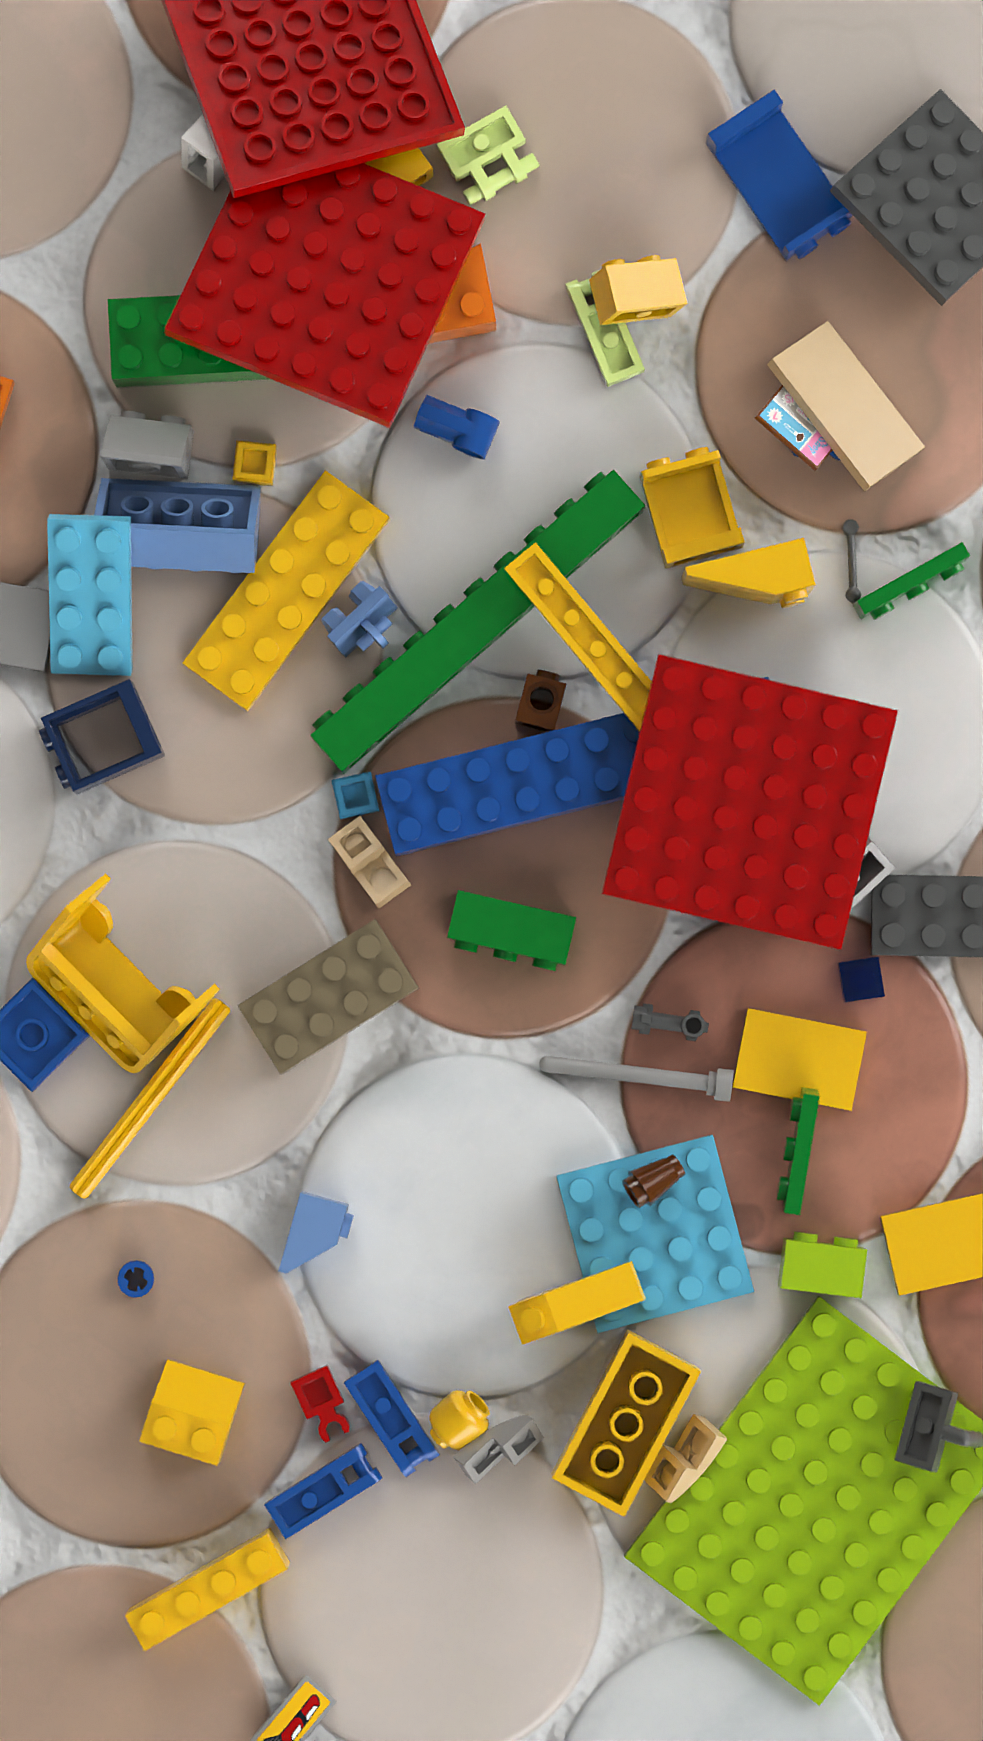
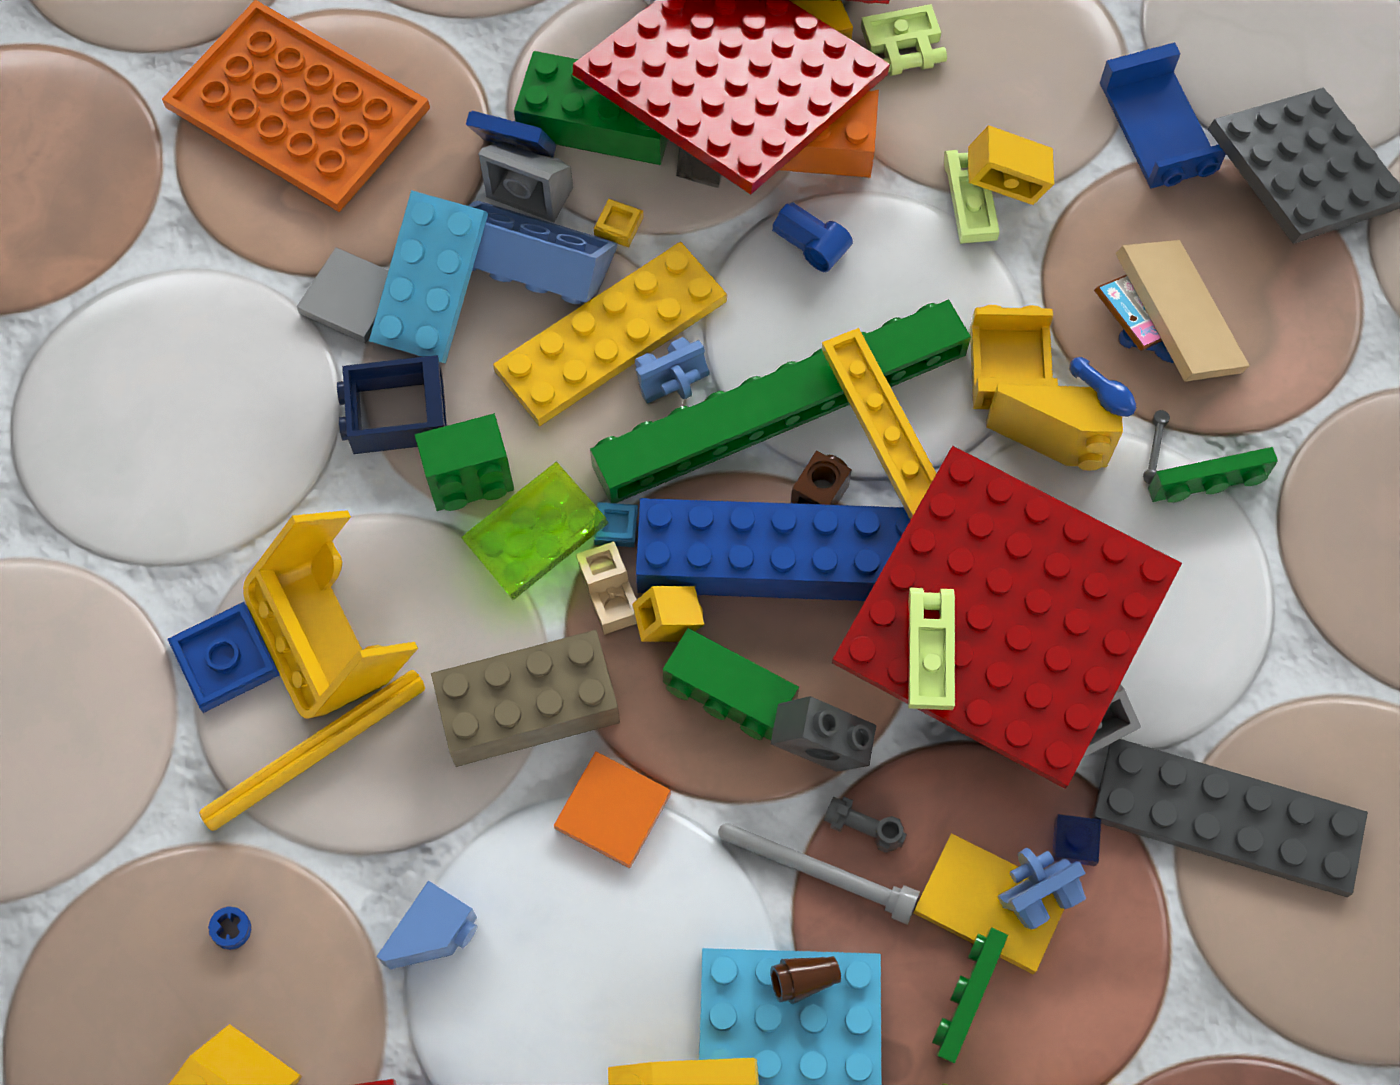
camera: 15 degrees right, 20 degrees down
(117, 404) = (515, 133): none -> blue tile
(196, 786) = (465, 462): none -> green brick
(282, 829) = (534, 530): none -> clear neon green plate
(435, 878) = (667, 612): none -> yellow brick
(438, 1073) = (612, 809): none -> orange tile
(611, 957) = (823, 734): none -> dark grey brick
(689, 866) = (931, 650): none -> yellowish green plate
(796, 549) = (1111, 394): none -> blue piece
(835, 1035) = (1026, 897): none -> medium blue hips

